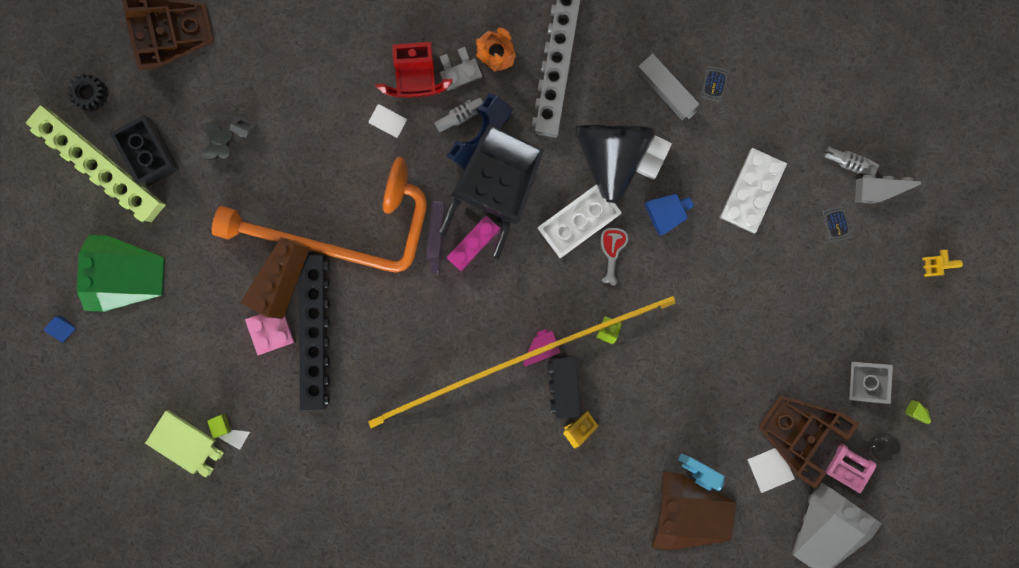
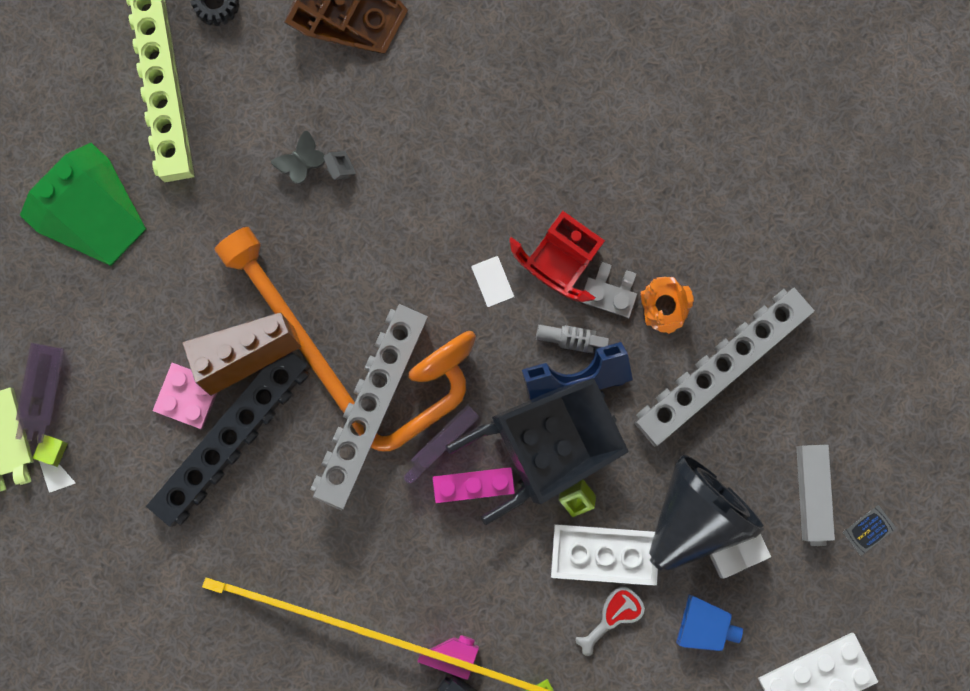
camera: 45 degrees right, 5 degrees down
(144, 151) = (219, 107): black brick -> none
(179, 393) = (41, 382): none -> clear purple hinge
(361, 182) = (411, 323): none -> light grey brick
(538, 202) = (578, 499): none -> lime slope

